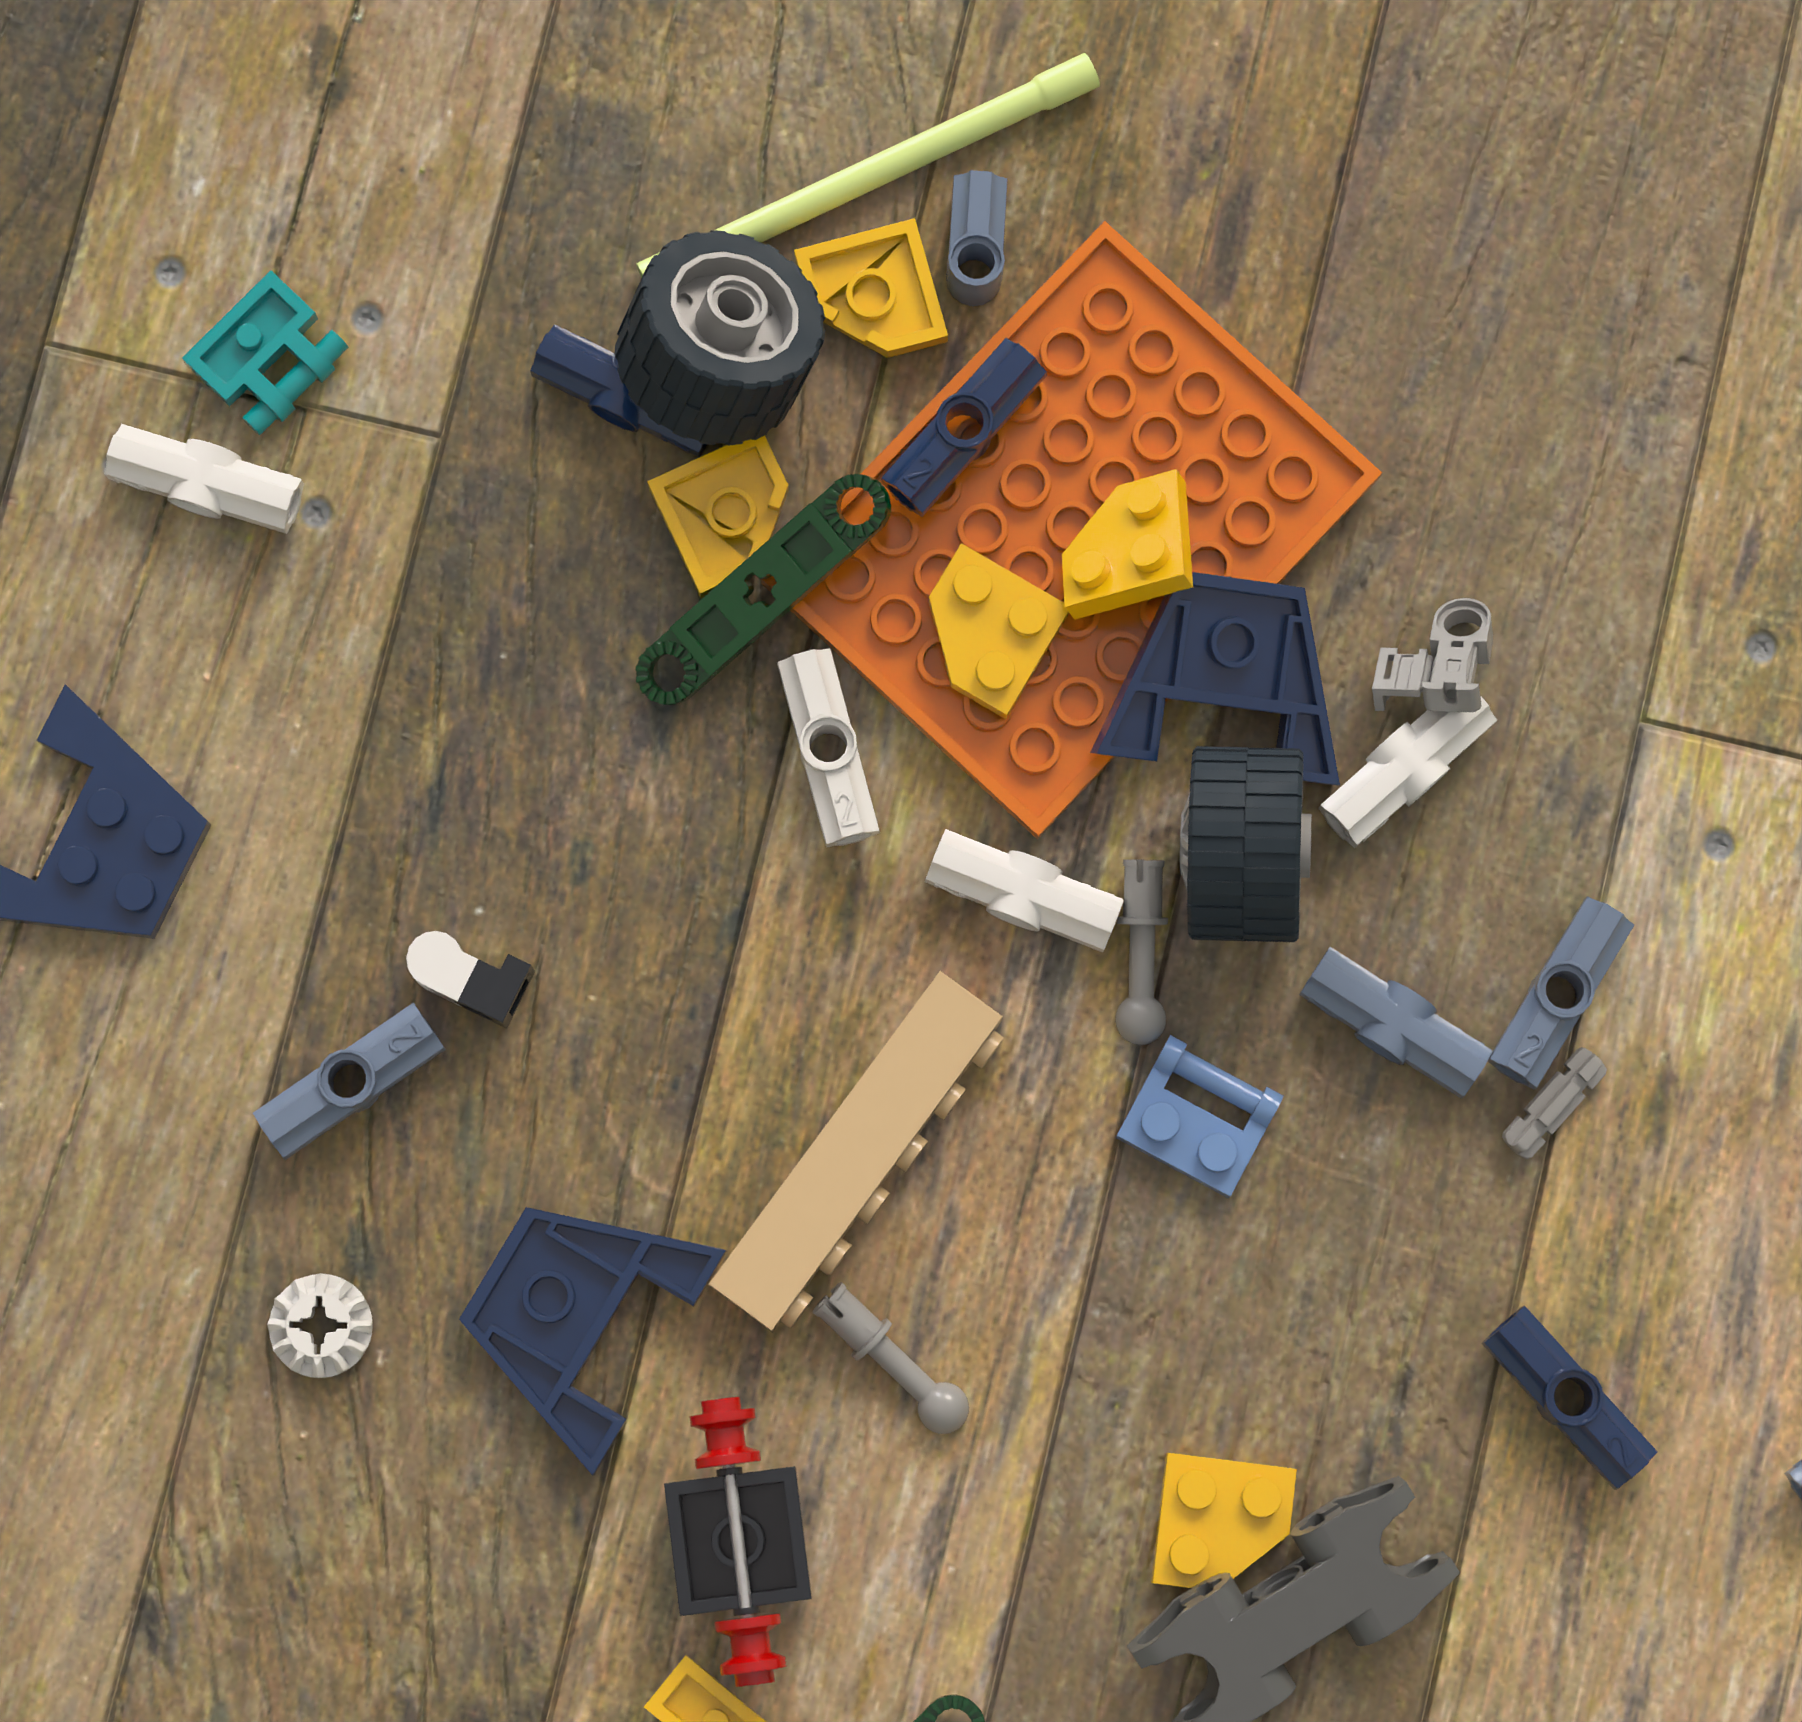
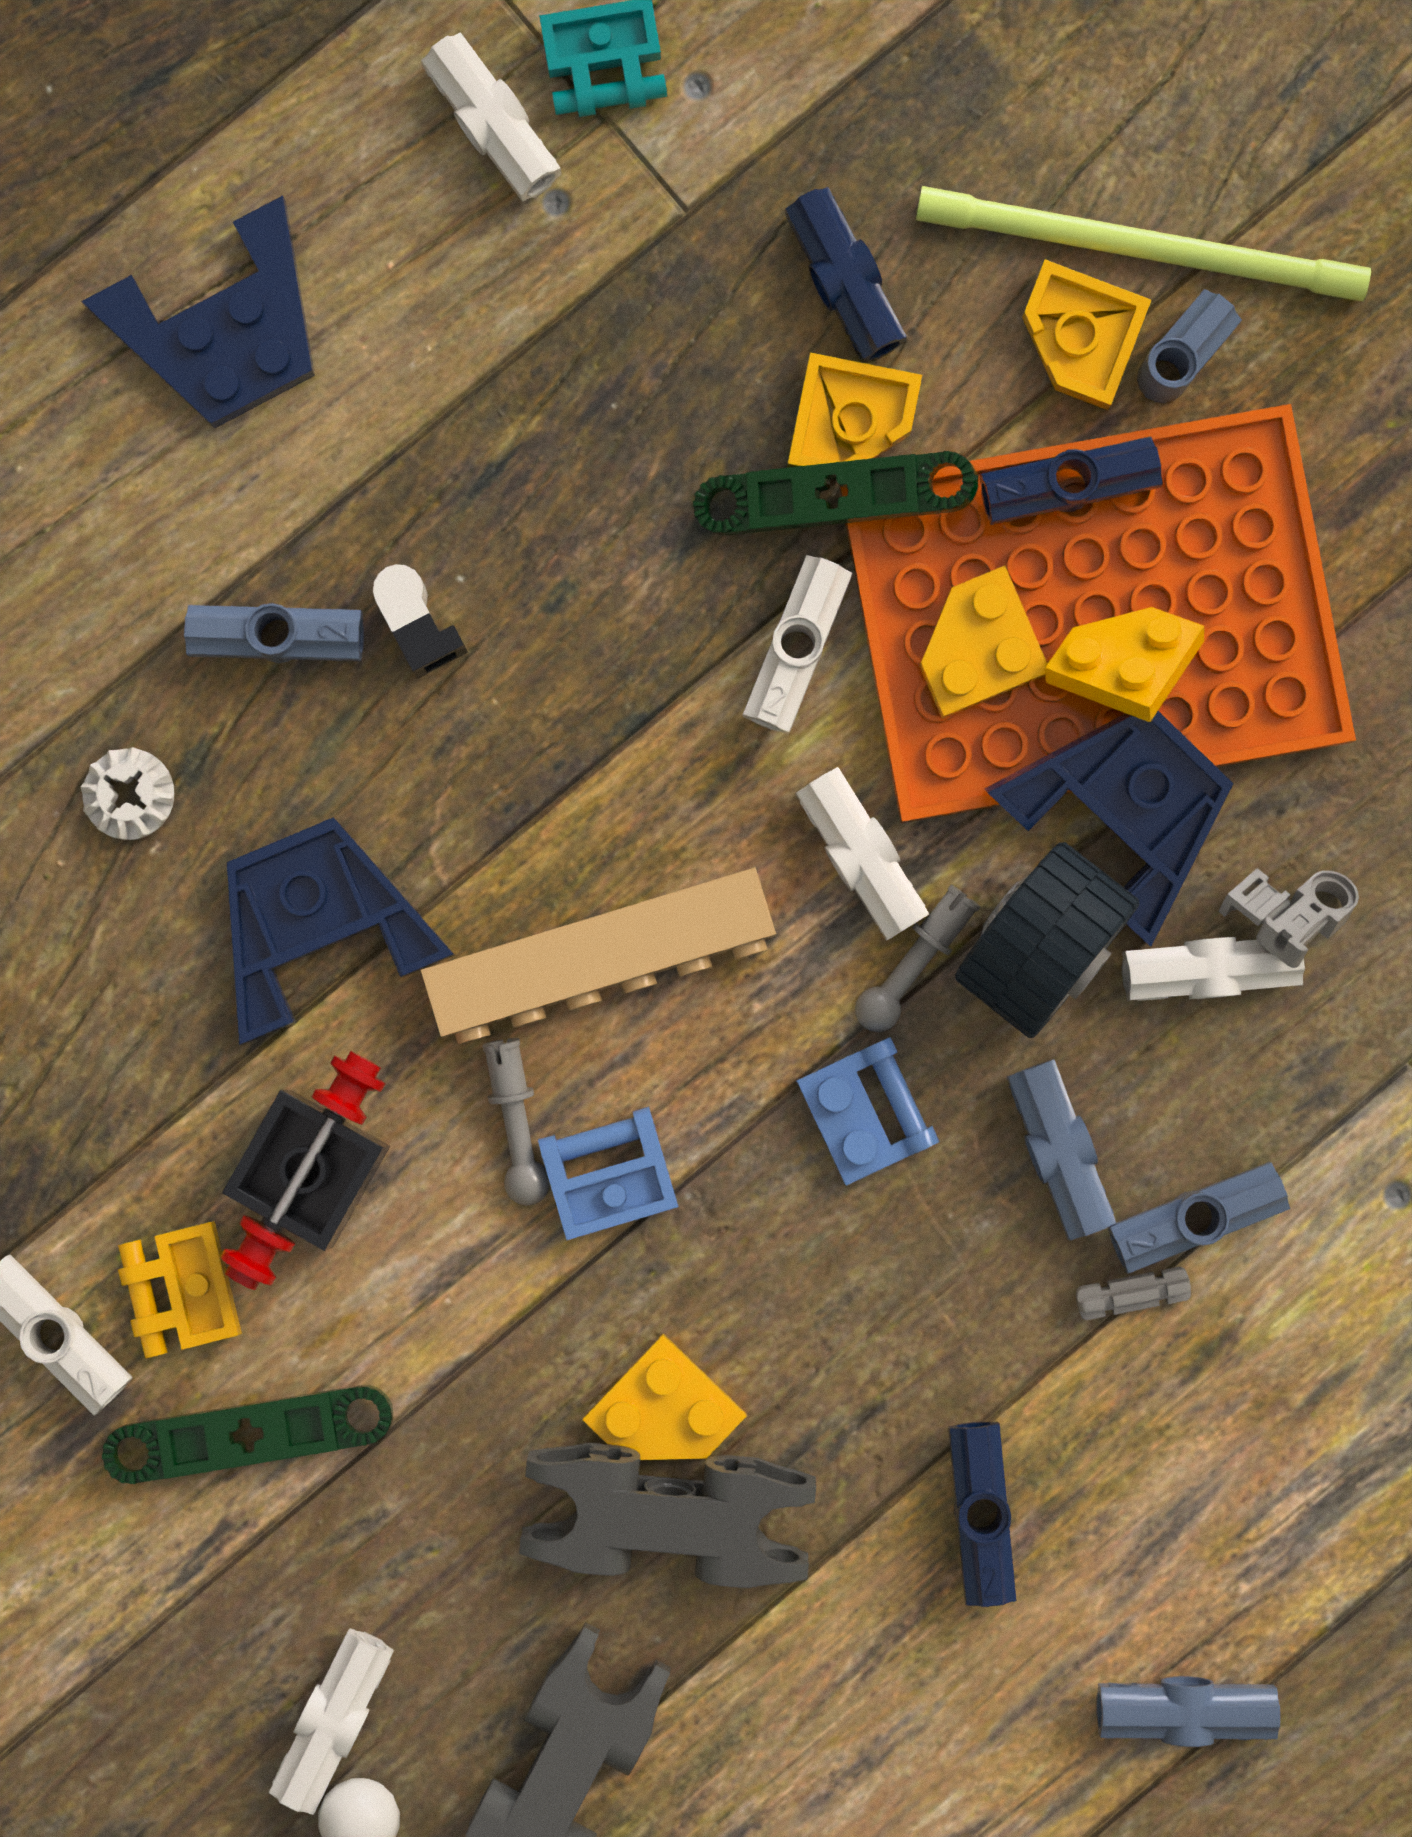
camera: 40 degrees right, 5 degrees up
(719, 337) = (939, 282): black wheel -> none
(1029, 1356) = (614, 1192): none -> medium blue plate

